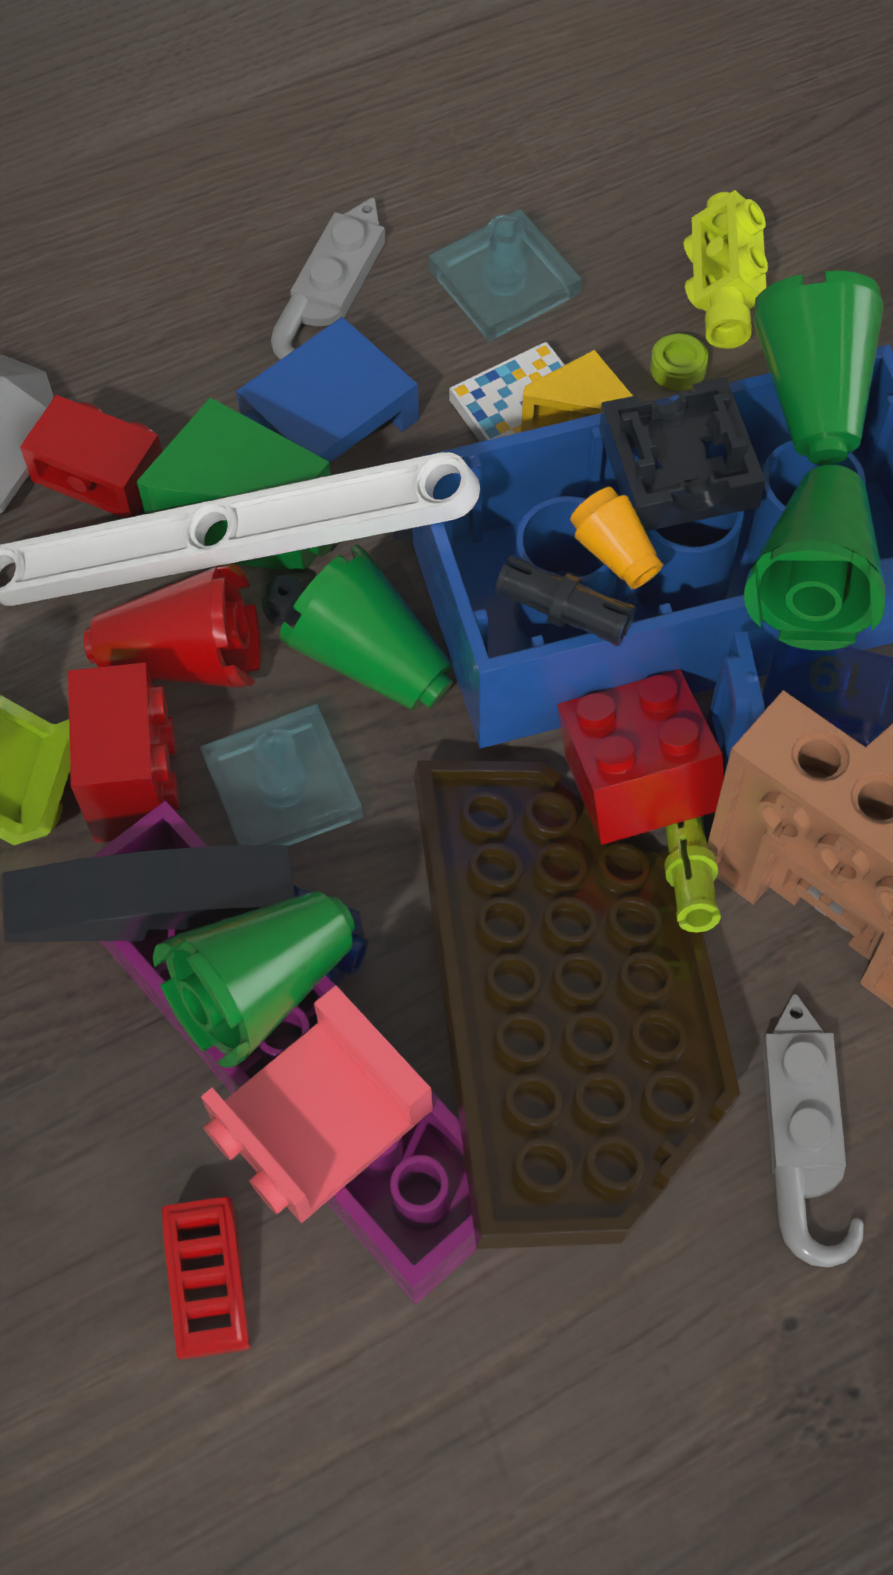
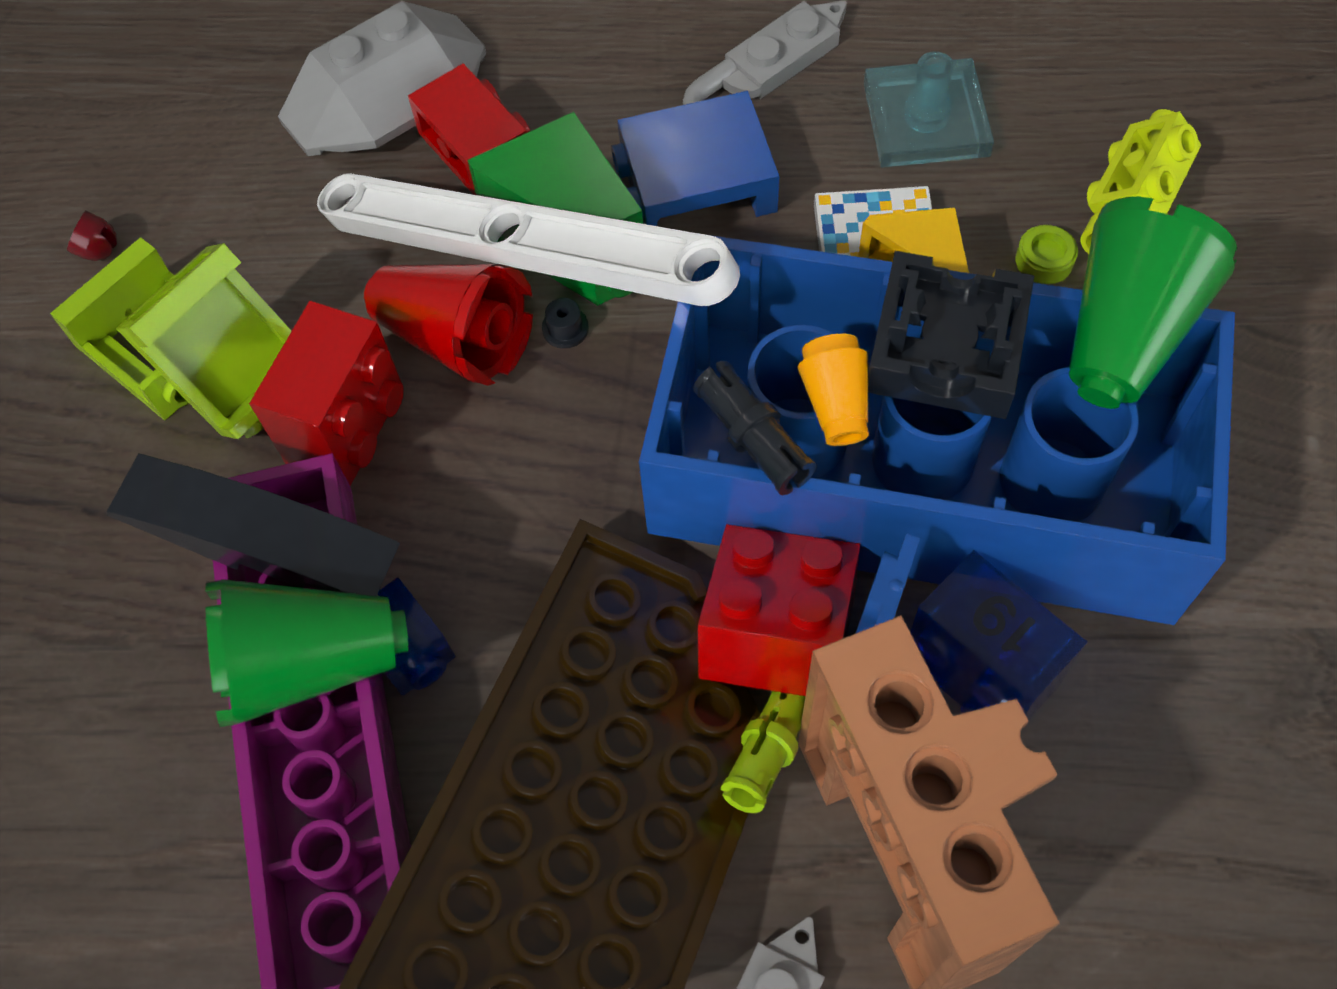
camera: 30 degrees right, 0 degrees up
(195, 1216) = (117, 872): red slope -> none
(282, 780) = (464, 484): clear light blue tile -> none
(319, 1110) = (272, 807): coral panel -> none
(368, 633) = (602, 375): green cone -> none
(820, 565) = (1022, 500): green cone -> none

